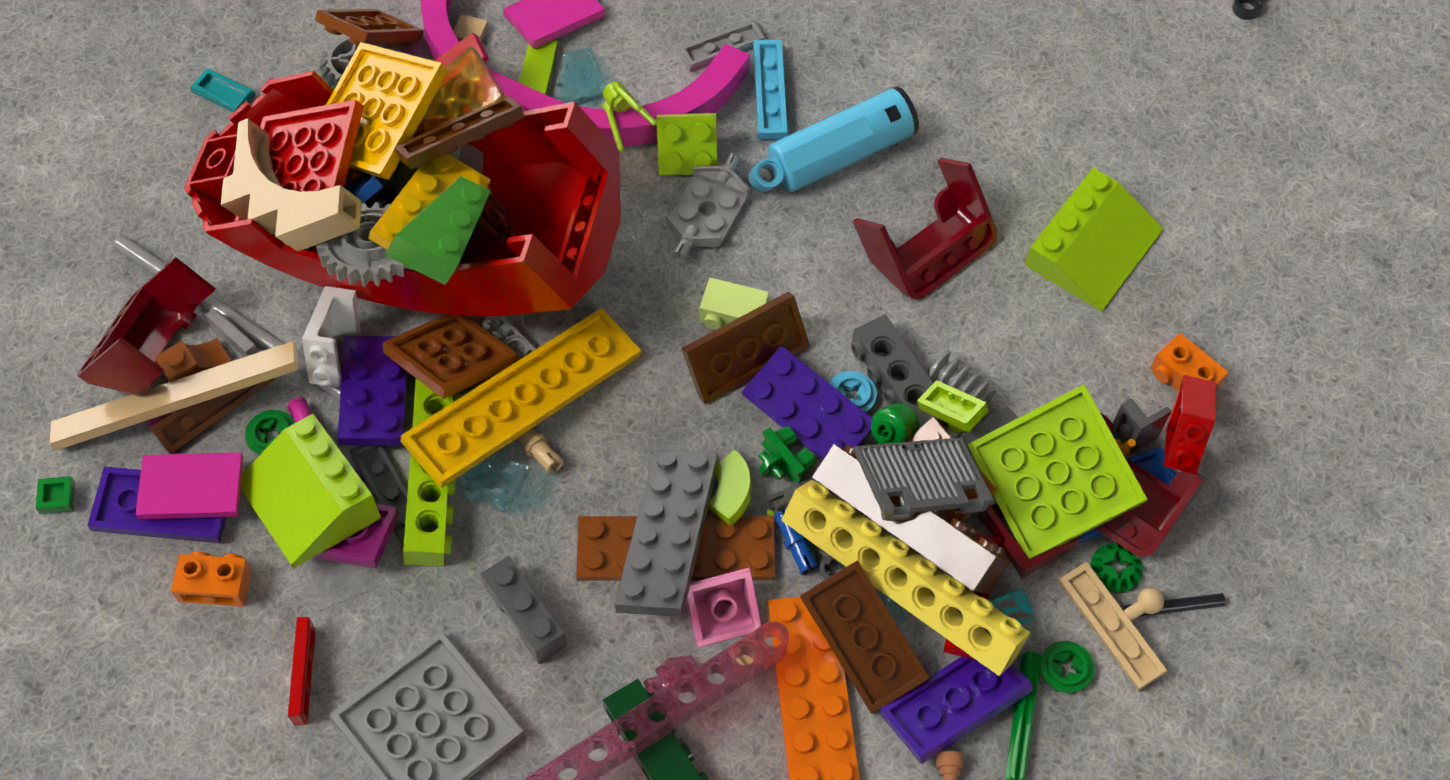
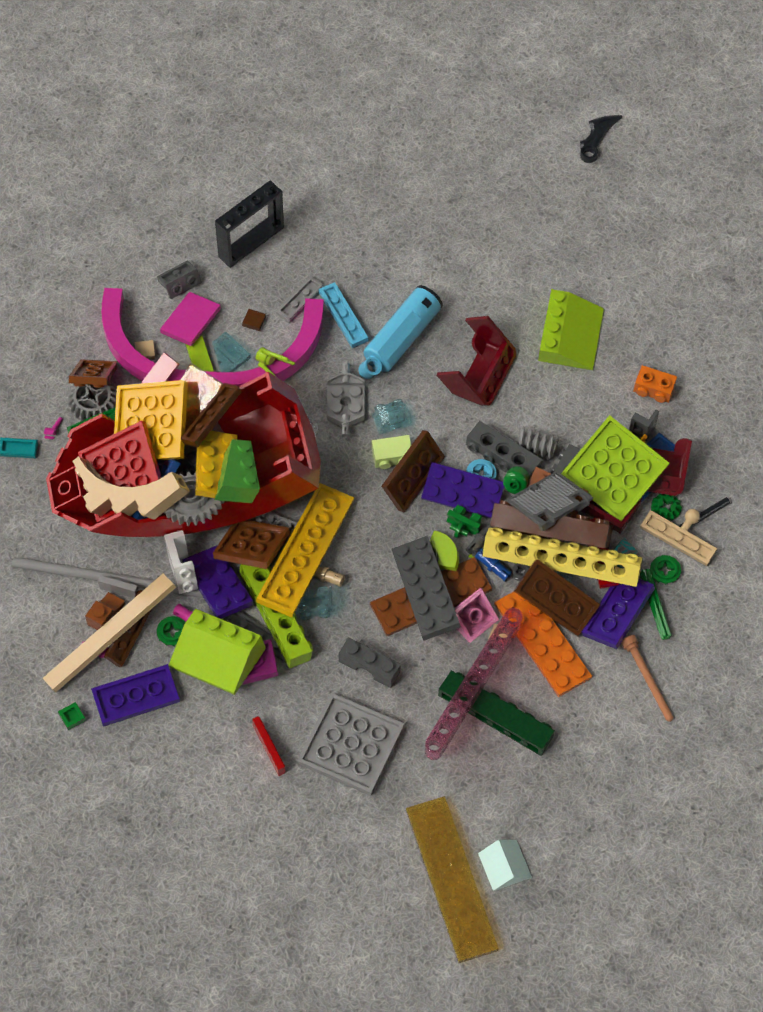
camera: 25 degrees left, 0 degrees up
(143, 328) = (62, 605): dark red windscreen -> none
(190, 485) = (148, 677): dark pink tile -> none
(211, 579) = (190, 721): orange brick -> none
(641, 48) = (254, 320): none -> reddish brown tile
(669, 672) = (467, 659): clear pink plate -> none
(686, 142) = (315, 367): lime plate -> none
(763, 257) = (391, 416): none -> clear light blue cylinder
(952, 406) = (543, 456): lime tile -> none
(1190, 425) = (673, 414): red window -> none

